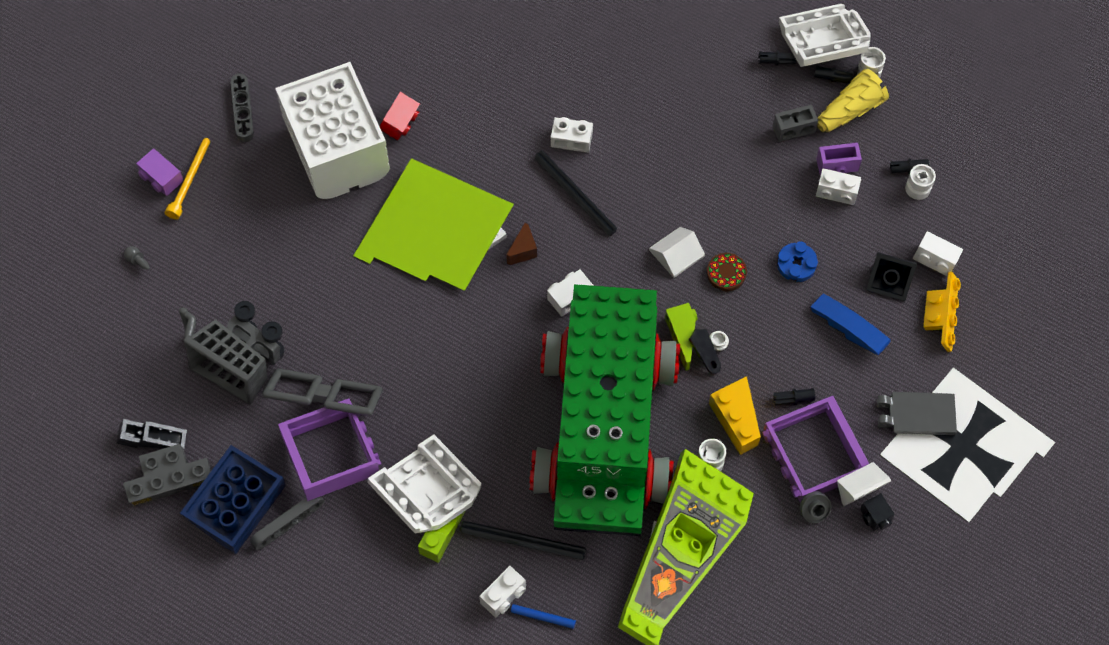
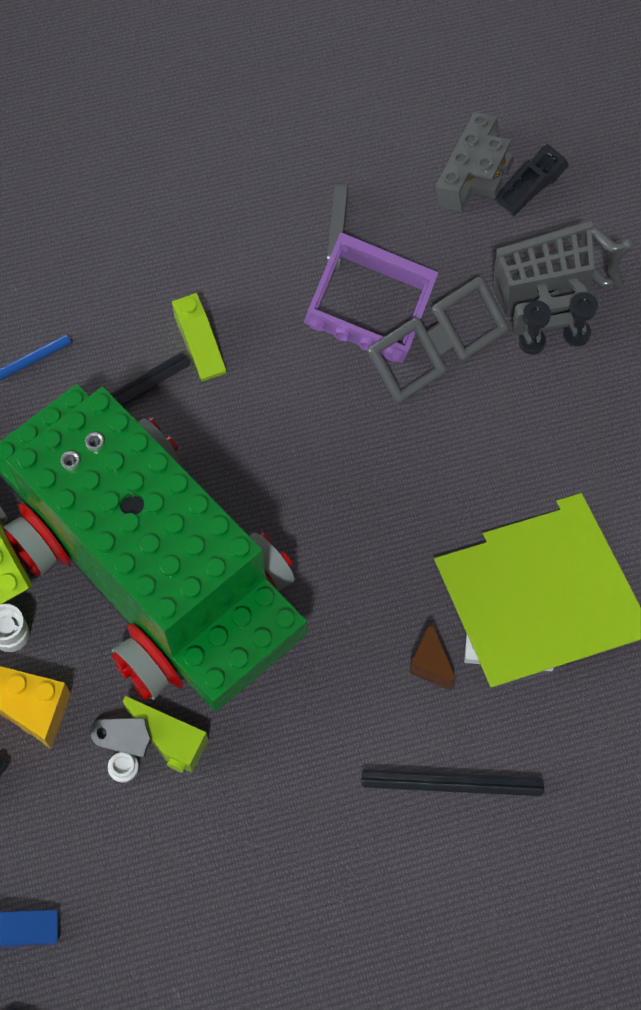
camera: 135 degrees right, 0 degrees up
(233, 499) = (398, 192): dark blue slope -> none
(427, 486) = (247, 347): white wedge -> none
(503, 592) = (86, 336): white brick -> none
(562, 293) = (326, 655): white brick -> none
(571, 134) = (534, 845): white brick -> none
(678, 251) = (272, 827): white slope -> none
(726, 271) = (192, 859): tile -> none
(794, 271) = (134, 971): blue plate -> none

